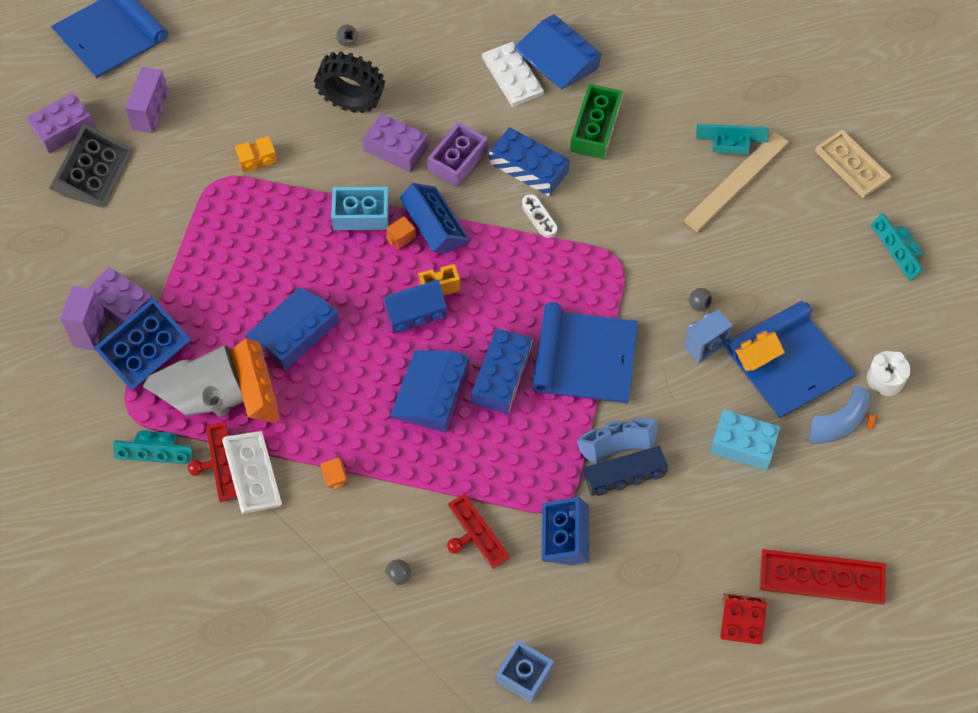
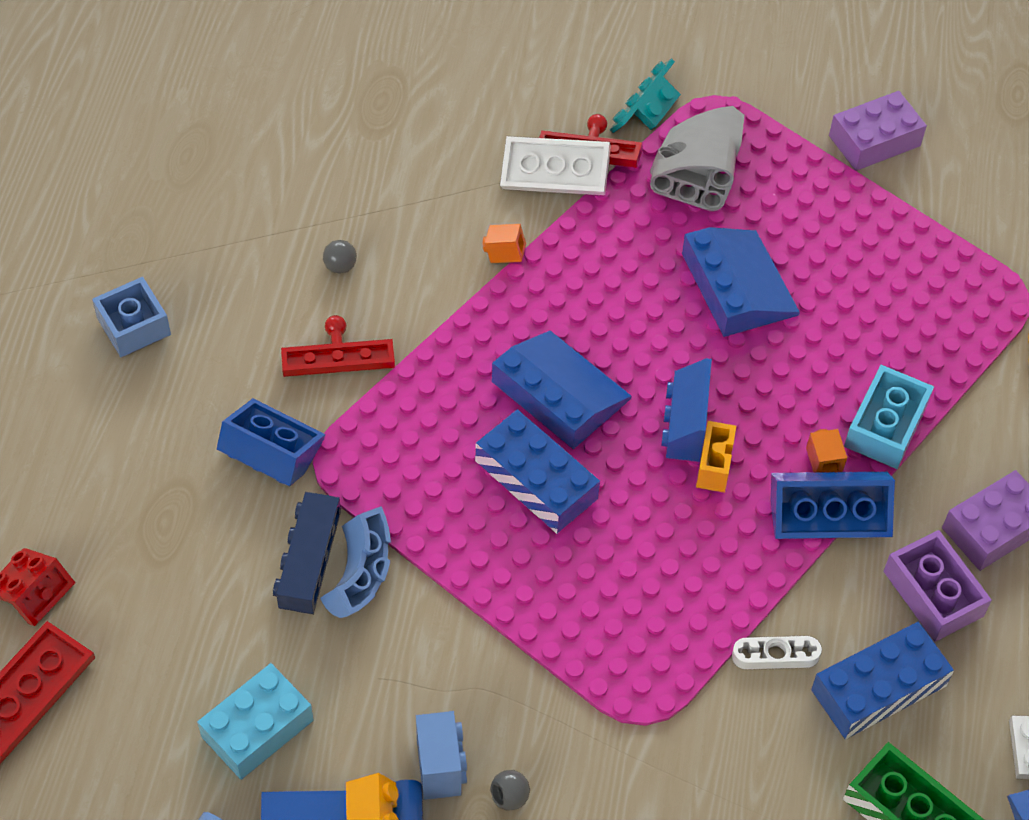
camera: 115 degrees right, 5 degrees down
(84, 318) = (855, 70): medium lavender brick -> none
(142, 344) = (794, 124): blue slope -> none
(254, 381) = (666, 201): orange slope -> none
(584, 355) = (510, 588): blue door -> none

